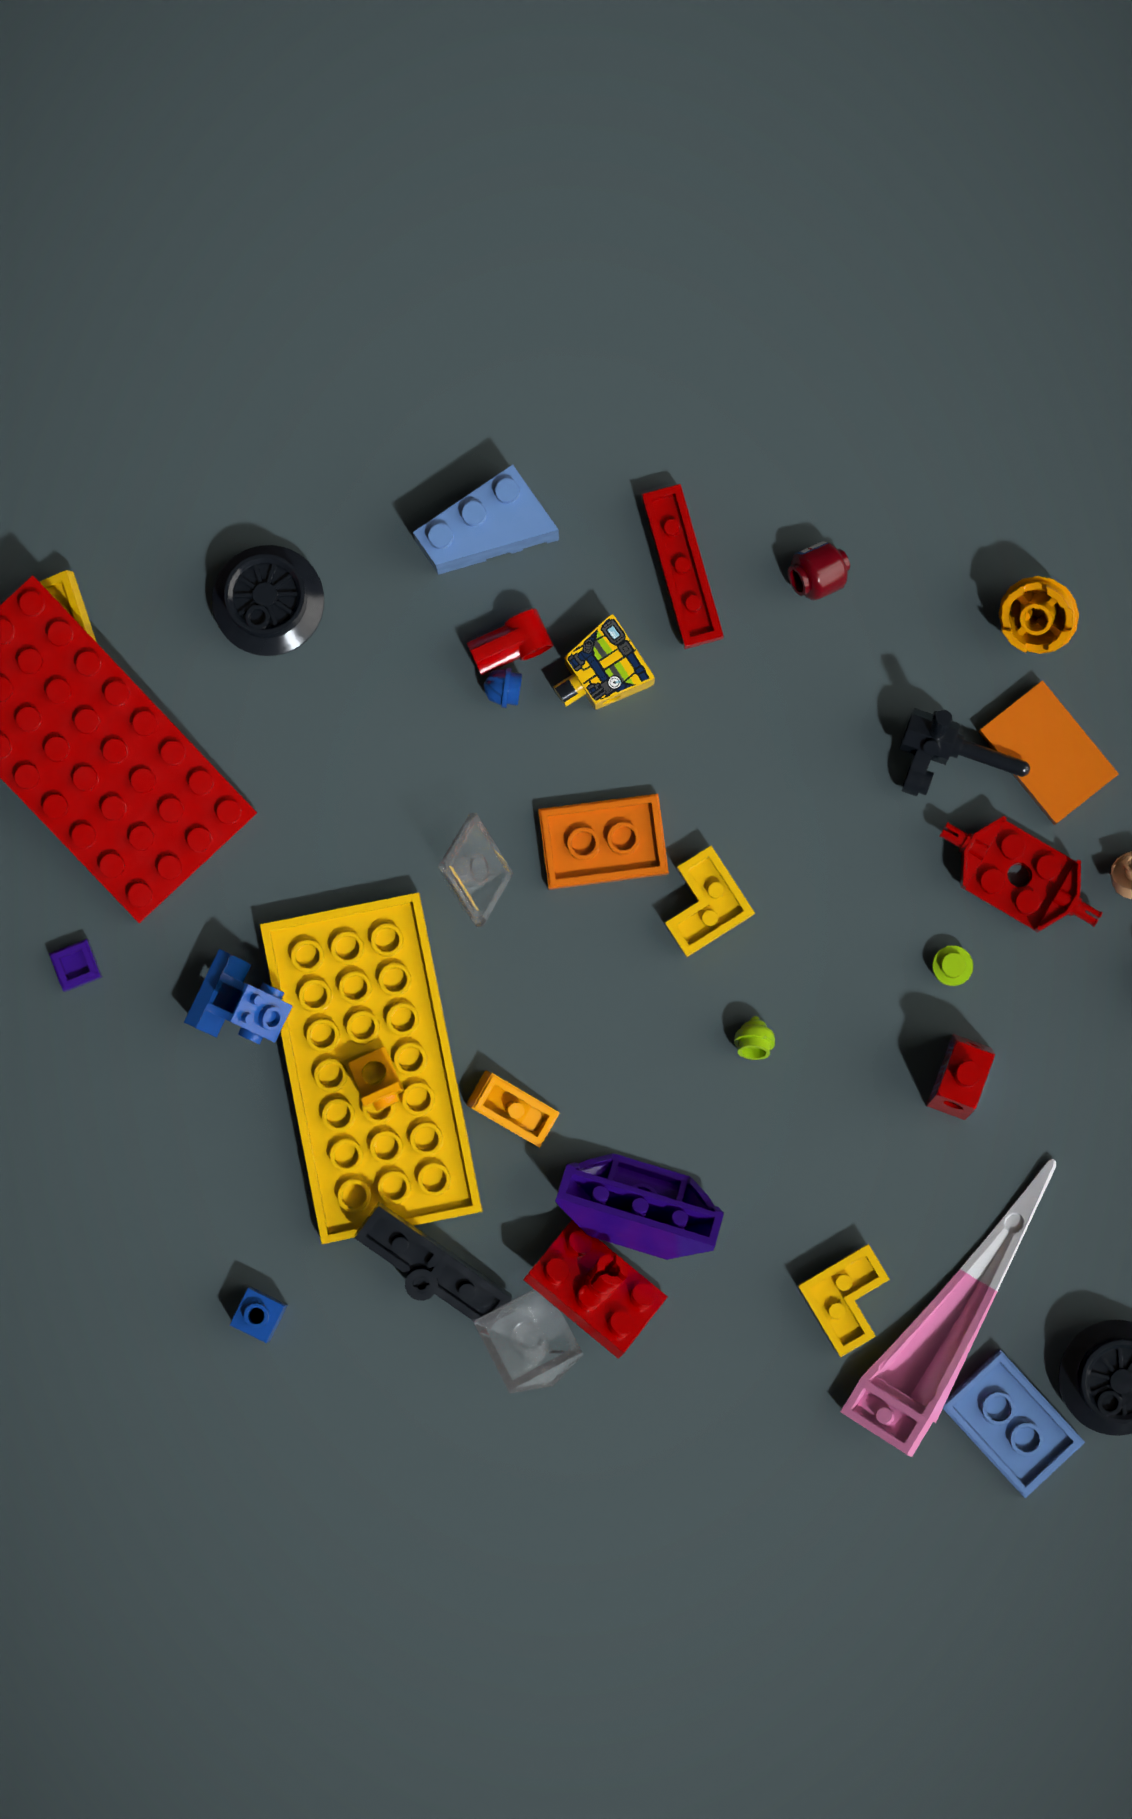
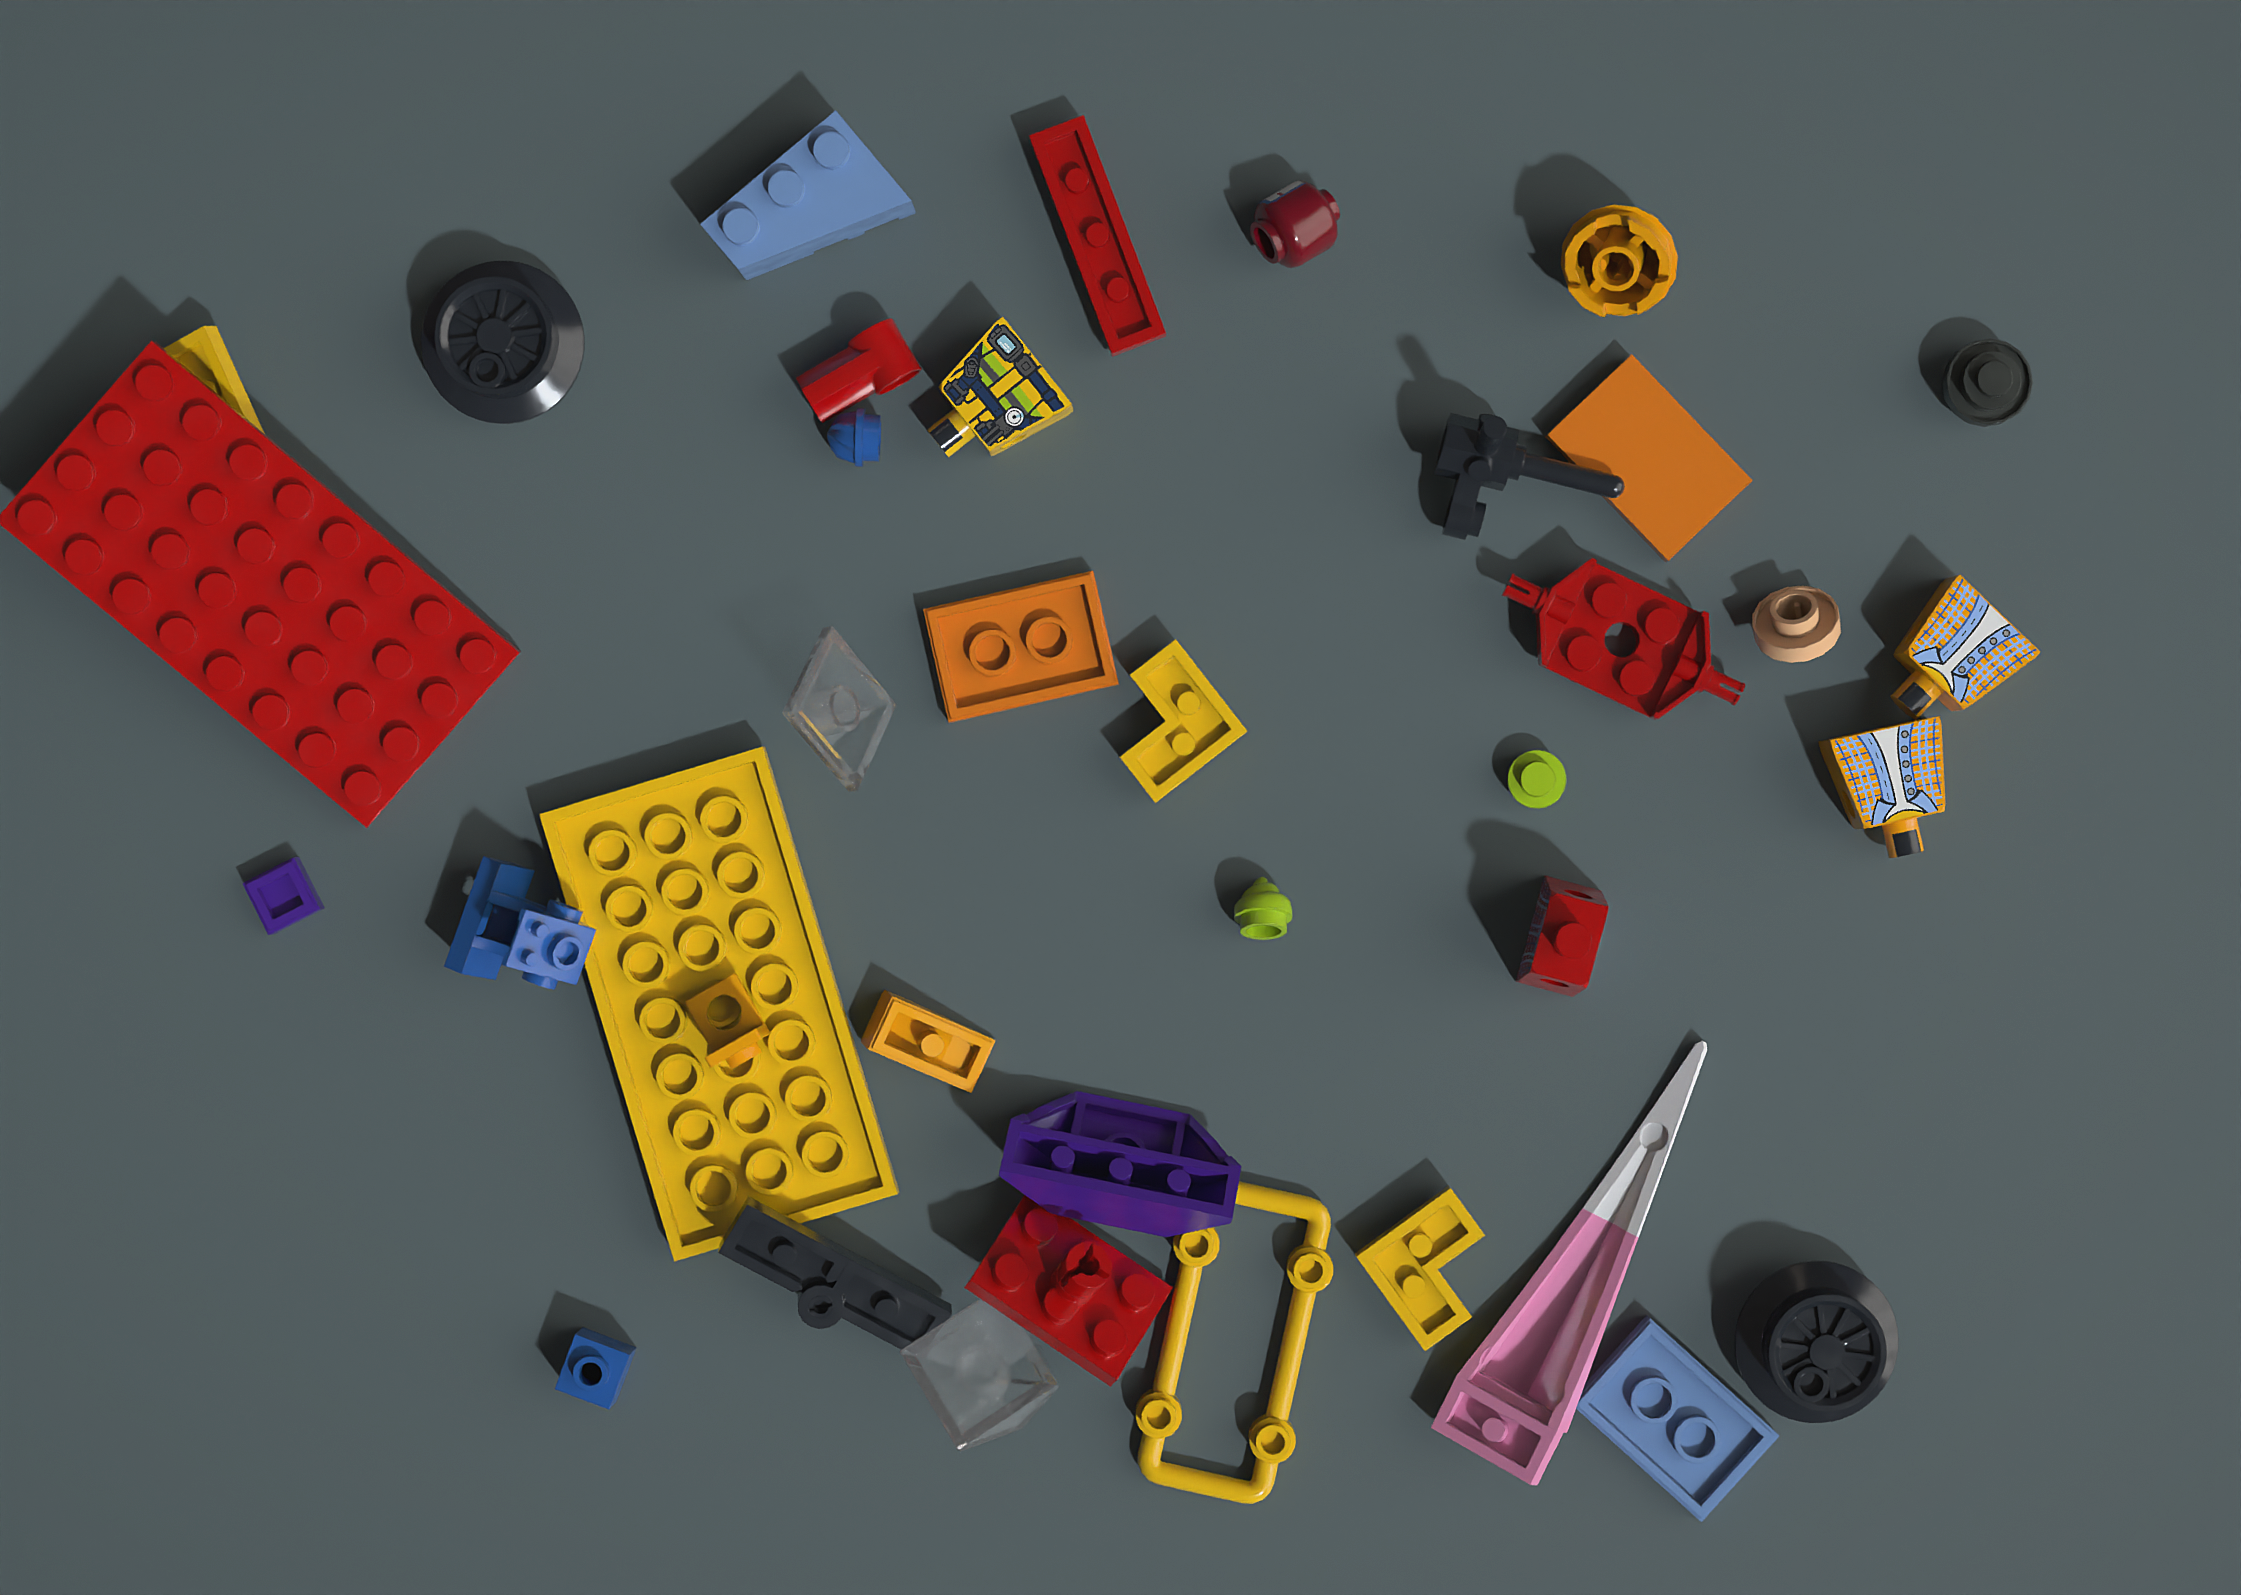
camera: 15 degrees left, 5 degrees up
(727, 1408) = (1271, 1434): none -> yellow bar

